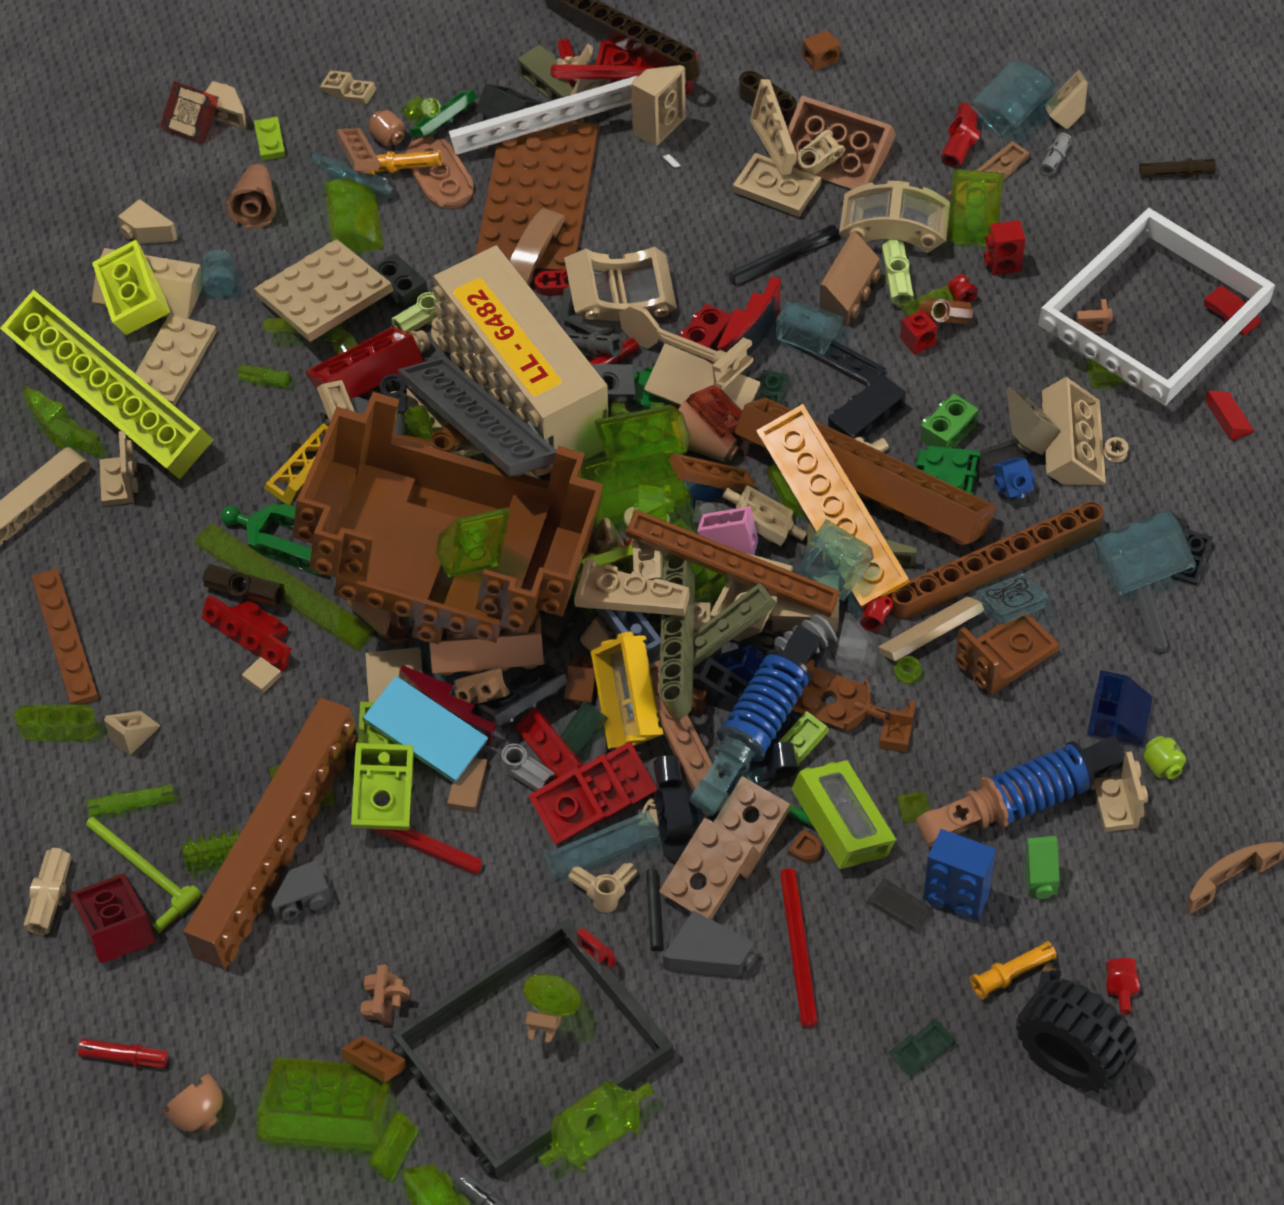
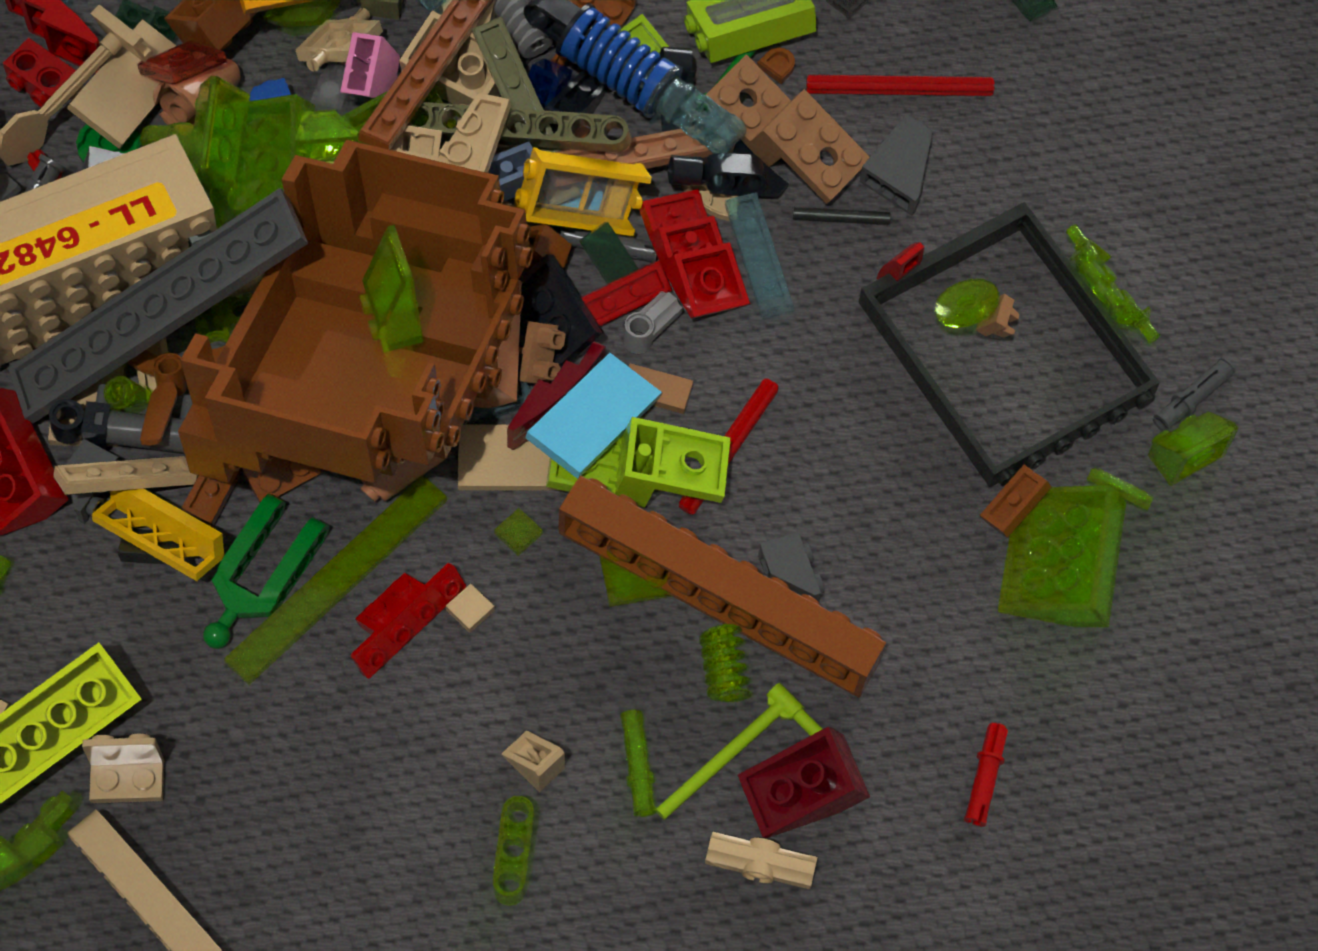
camera: 90 degrees left, 10 degrees up
(64, 637) = (372, 846): dark orange plate -> none
(196, 1106) = (1063, 682): nougat cylinder -> none
(256, 587) = (325, 635): dark brown piece -> none
(330, 693) = (518, 531): none -> clear neon green tile
(387, 993) = (949, 493): nougat hips -> none
(604, 889) = (813, 263): tan axle -> none
(711, 473) = (280, 77): dark orange tile -> none

